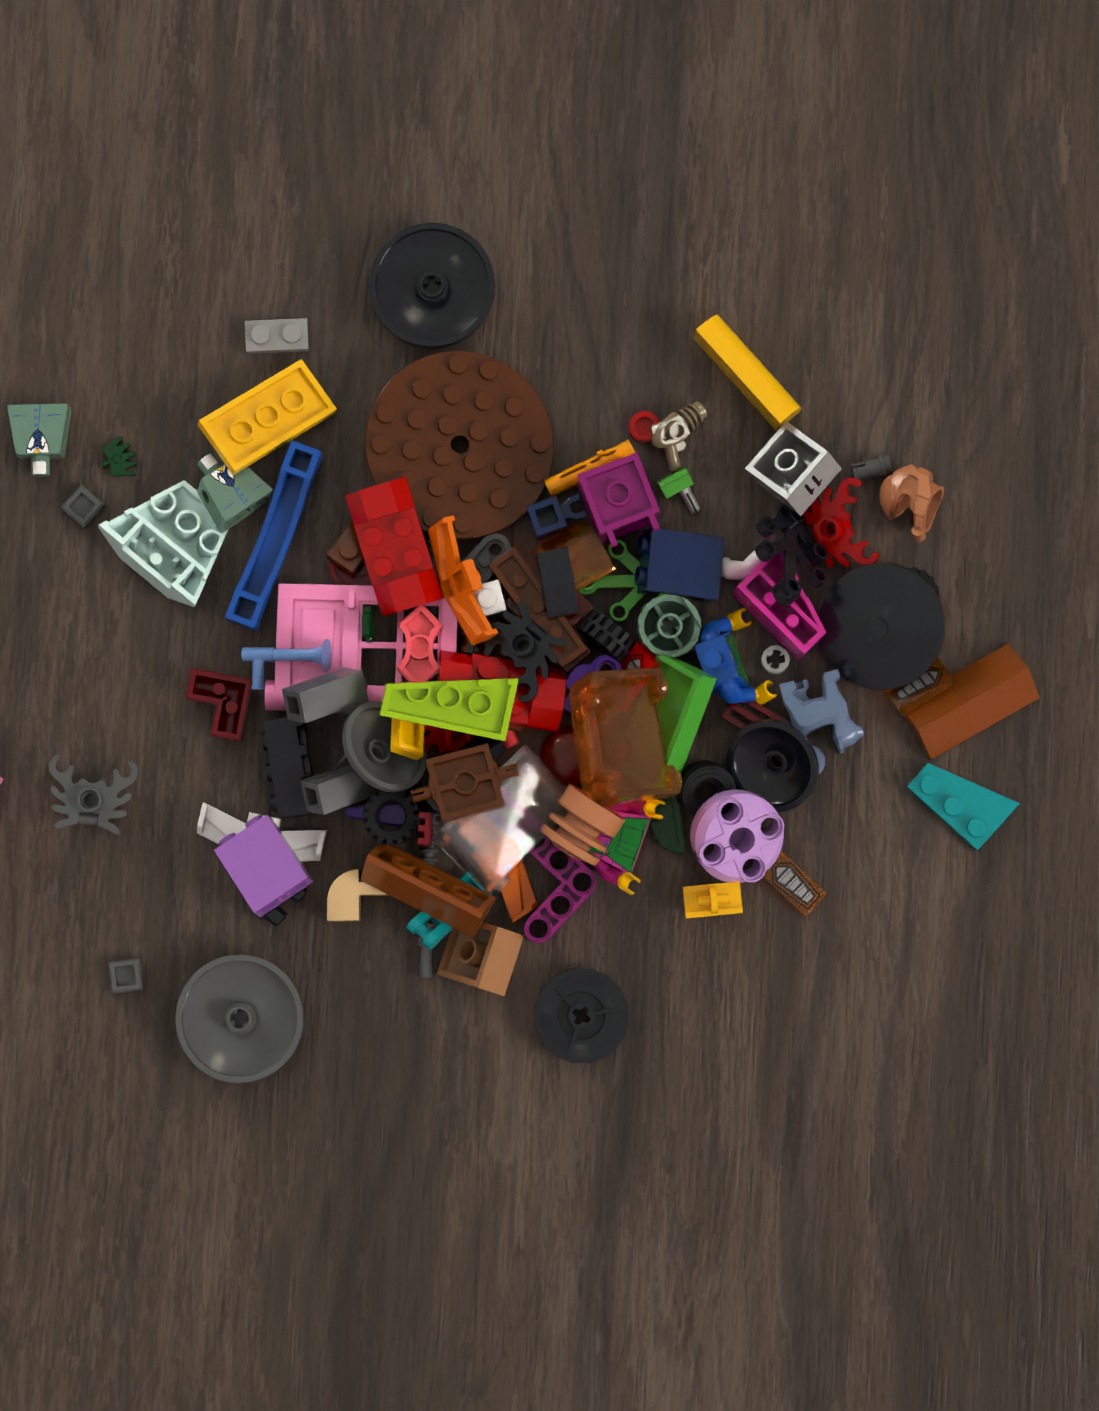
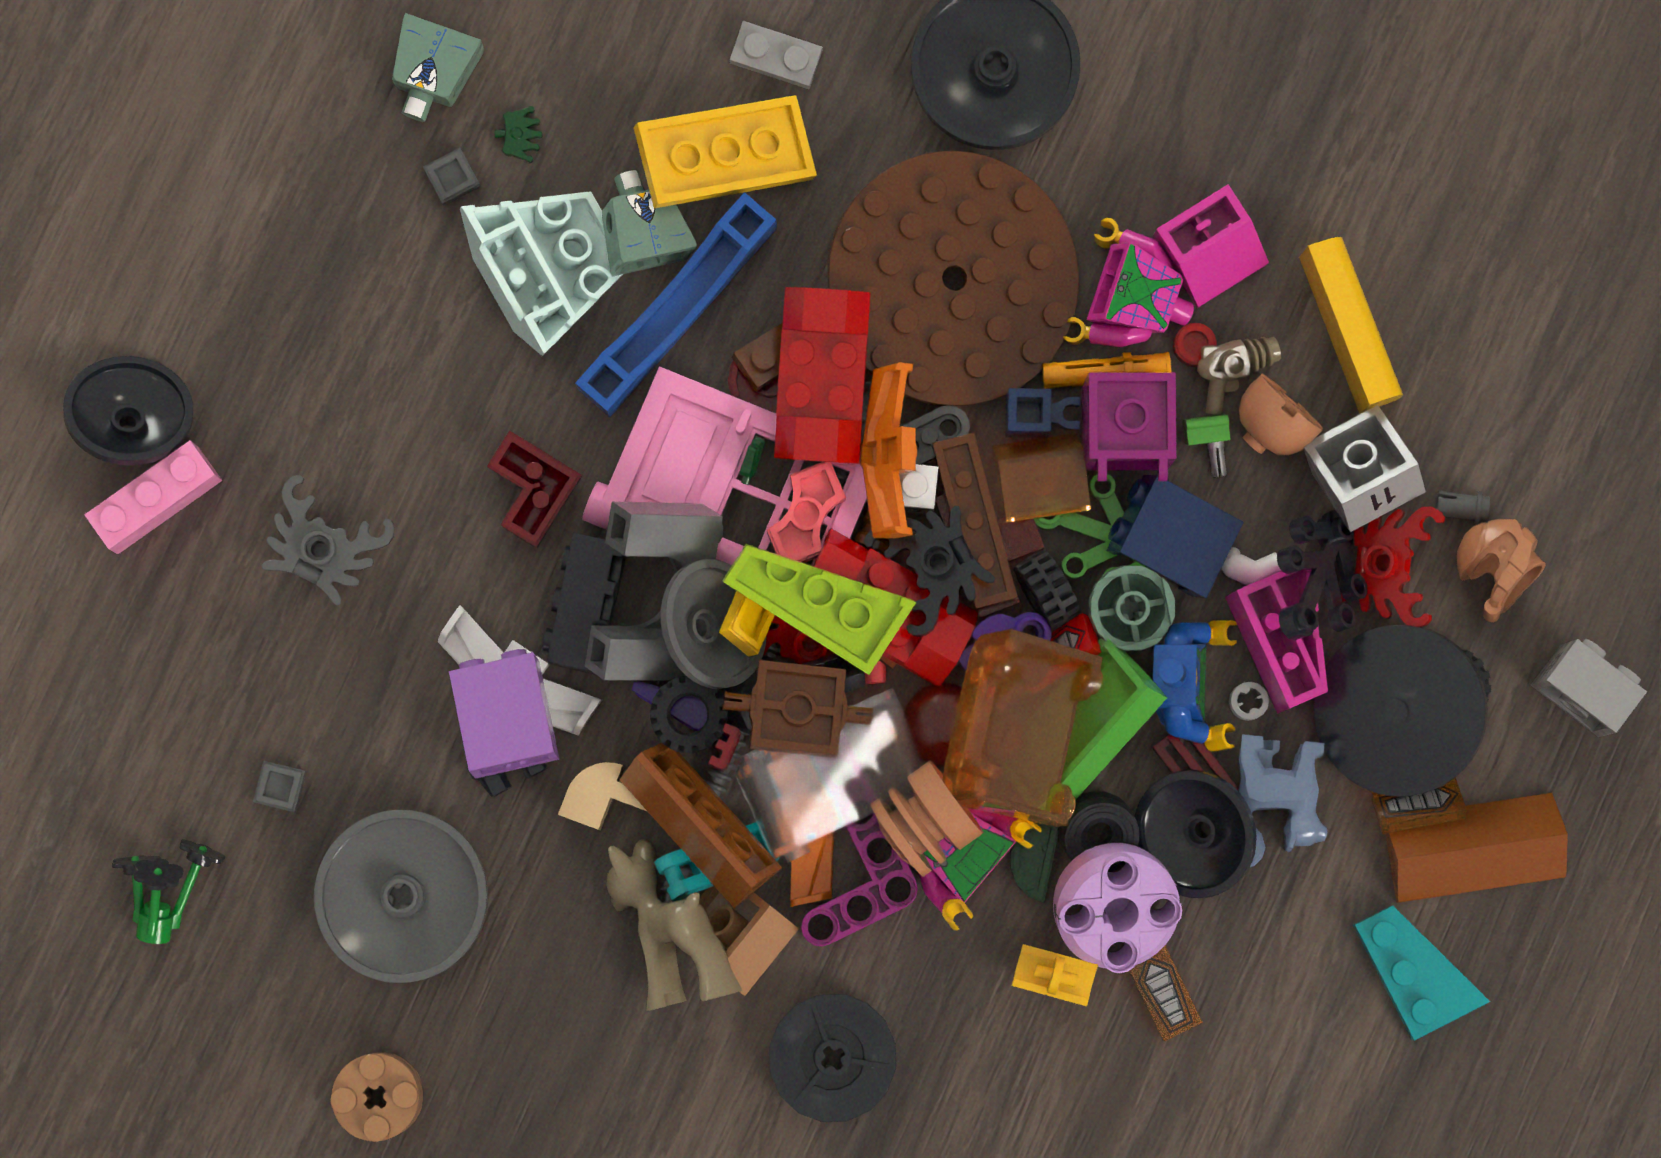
camera: 15 degrees right, 0 degrees up
(74, 1099) = (154, 917): none -> plant
(259, 655) = (599, 447): medium blue piece -> none
(259, 1170) = (352, 1096): none -> medium nougat brick
(427, 969) = (662, 925): none -> dark tan animal
(557, 583) = (1010, 499): black slope -> none
(588, 407) = (1134, 292): none -> dark pink torso
(629, 354) = (1212, 245): none -> dark pink slope
(719, 458) = (1275, 419): none -> nougat cylinder
(1005, 560) = (1589, 687): none -> light grey brick

